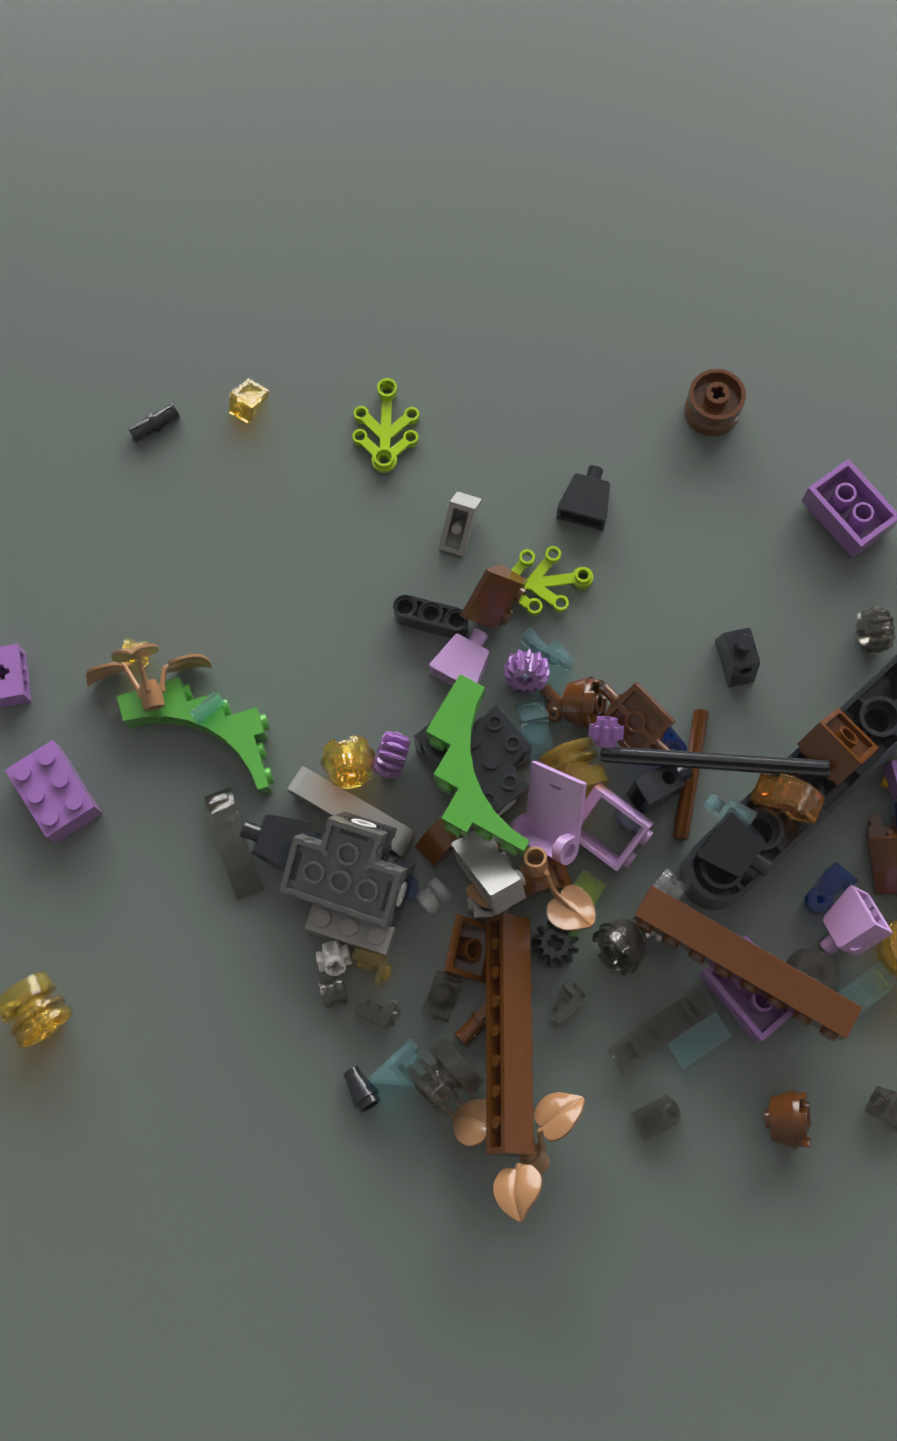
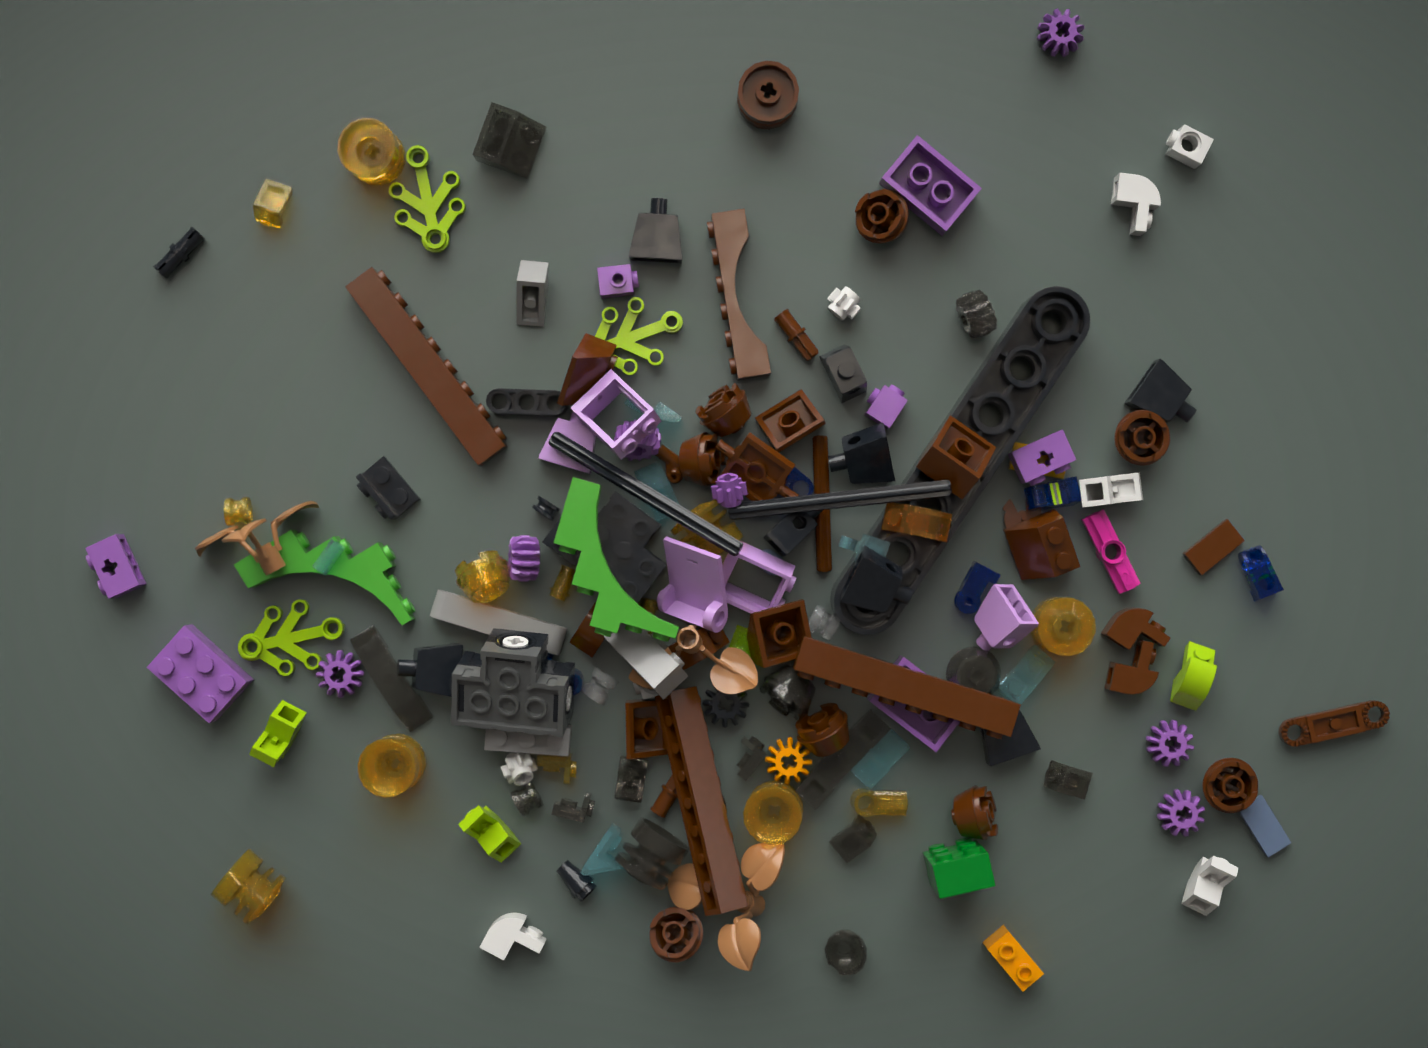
camera: 20 degrees left, 15 degrees up
(111, 866) = (279, 734): none -> lime brick
(145, 780) = (286, 638): none -> lime plant
(177, 819) = (331, 669): none -> medium lavender gear
(196, 915) = (376, 768): none -> clear yellow wheel
(277, 1123) = (509, 929): none -> white brick
(281, 665) = (387, 489): none -> black bracket
(287, 1015) = (490, 832): none -> lime brick
(347, 372) = (358, 144): none -> clear yellow wheel
(347, 566) = (426, 366): none -> reddish brown brick
(422, 790) = (562, 583): none -> clear yellow pin
(423, 715) = (545, 508): none -> black bush
(450, 1170) = (676, 934): none -> reddish brown cone
(471, 390) = (509, 141): none -> clear smoke slope
(513, 615) = (600, 397): none -> lavender window
(527, 716) = (646, 494): none -> black axle
(540, 529) = (617, 281): none -> medium lavender brick
(587, 1048) = (773, 828): none -> clear yellow wheel
(606, 1027) = (789, 770): none -> light orange gear
(617, 664) = (725, 411): none -> reddish brown cone
(622, 880) = (777, 633): none -> reddish brown slope
(624, 1237) = (846, 952): none -> clear smoke hair
(649, 994) = (824, 730): none -> reddish brown cone
(650, 615) = (749, 351): none -> reddish brown arch
(679, 689) = (790, 421): none -> reddish brown slope
(692, 1085) = (882, 802): none -> clear yellow piece
(697, 614) = (796, 335): none -> reddish brown axle
(743, 732) = (865, 456): none -> black torso
(749, 594) = (844, 303): none -> white gear
(764, 1169) = (958, 868): none -> green brick
(771, 695) = (885, 405): none -> medium lavender brick
(801, 524) = (881, 216): none -> reddish brown cone
(803, 1291) = (1013, 958): none -> light orange brick
(837, 1055) = (1019, 744): none -> black torso

